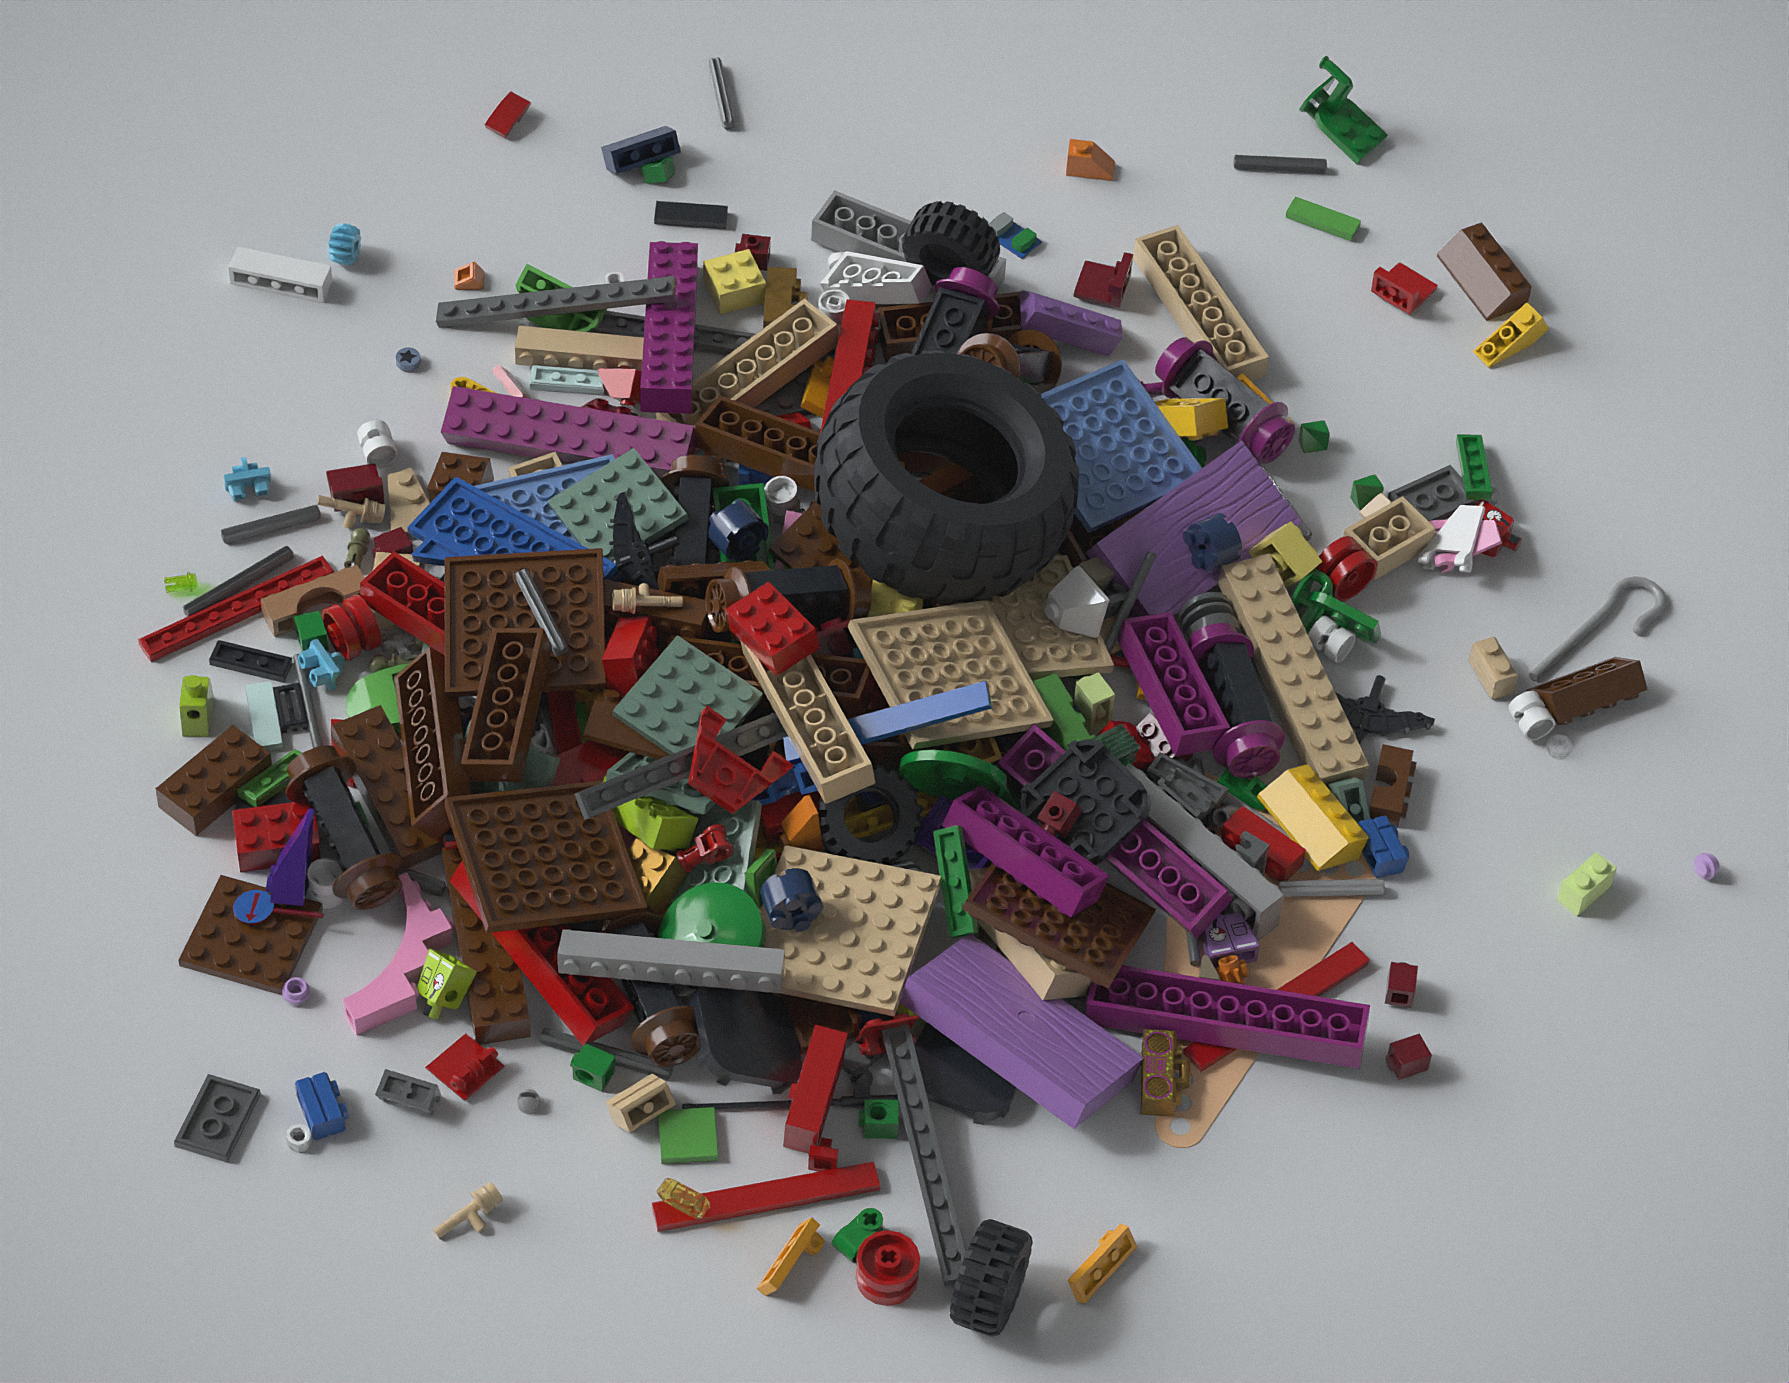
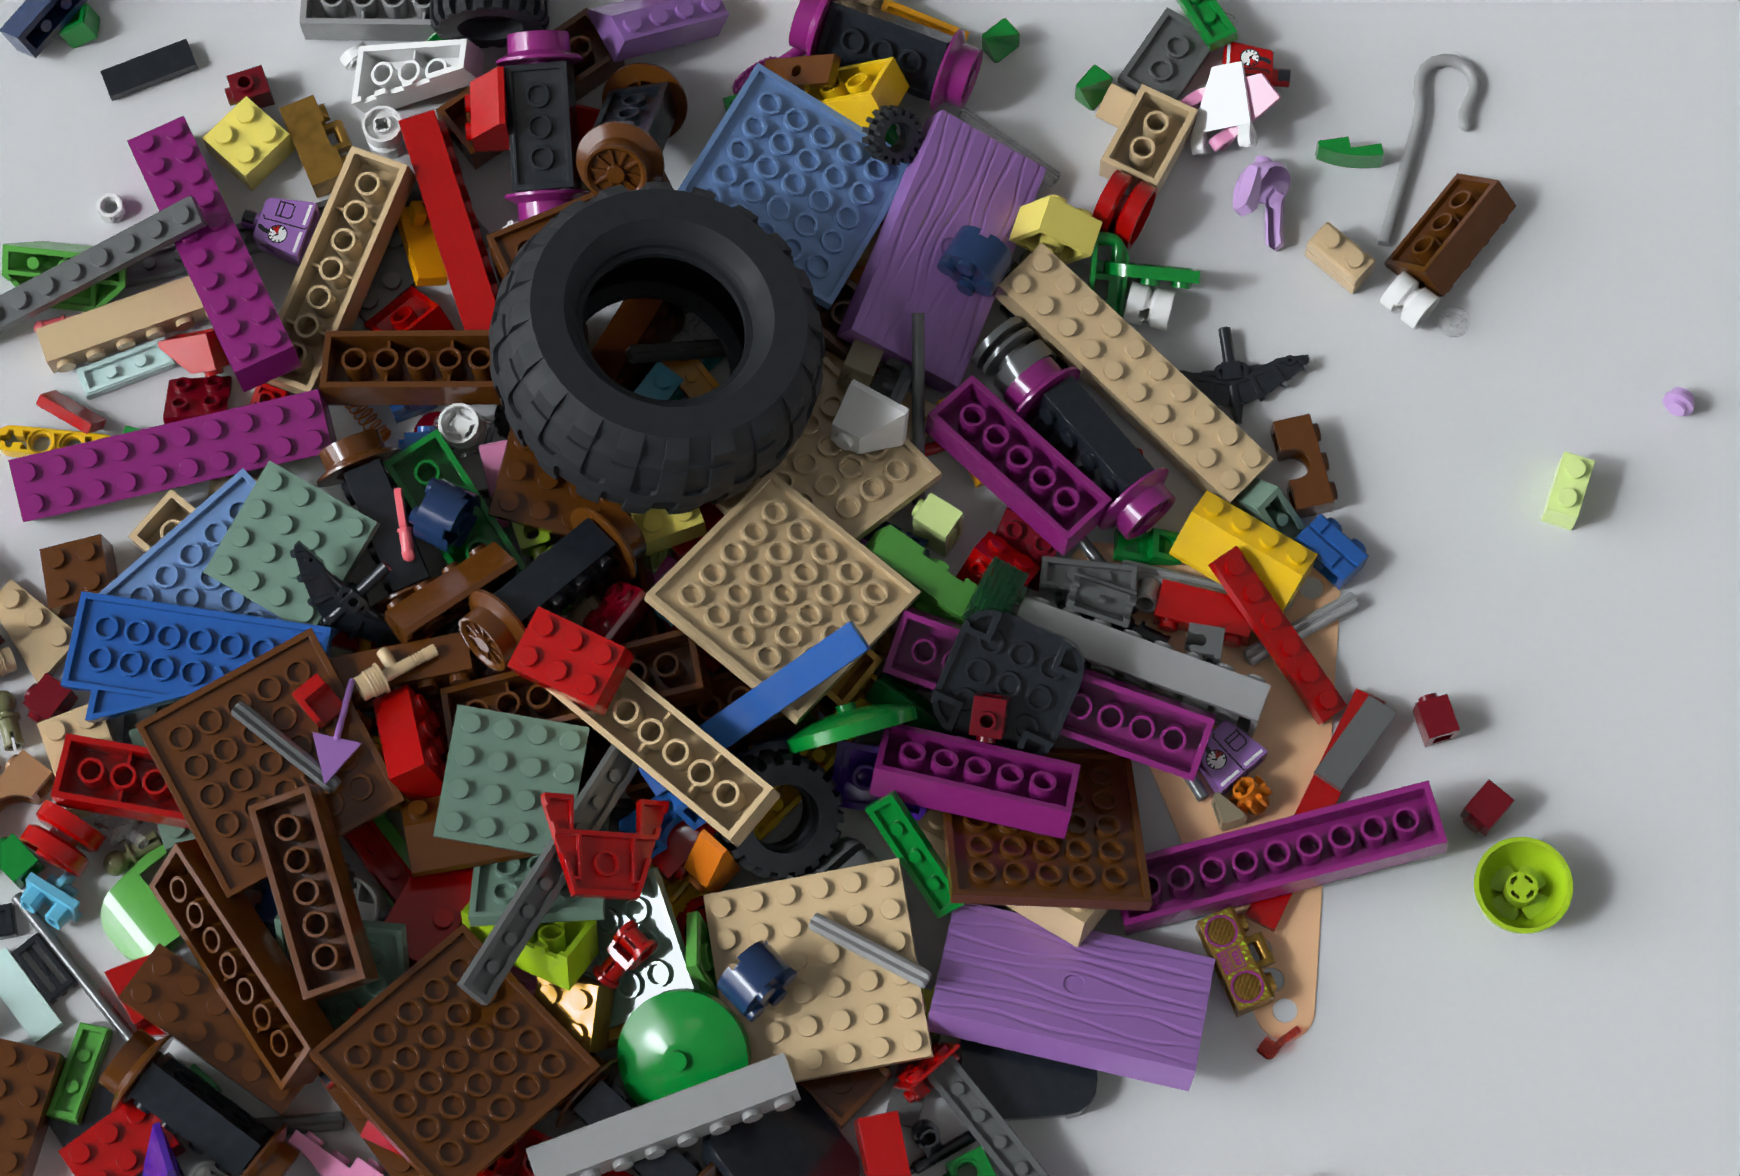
camera: 20 degrees left, 20 degrees up
(574, 627) = (333, 750): none -> medium lavender piece
(580, 591) = (318, 700): none -> red panel
(703, 529) = (405, 532): none -> coral piece
(726, 333) = (283, 227): none -> medium lavender torso
(885, 921) = (870, 950): none -> light grey axle
(912, 317) = (488, 112): none -> red slope
(1154, 1143) = (1269, 1048): none -> clear red hand
(1163, 388) = (807, 71): none -> reddish brown tile
(1211, 443) = (877, 131): none -> black tyre
(1309, 877) = (1277, 635): none -> red plate
(1331, 972) = (1355, 743): none -> dark grey tile
(1406, 1112) = (1523, 868): none -> lime piece
(1460, 599) = (1266, 184): none -> lavender piece
(1529, 605) = (1339, 153): none -> green slope

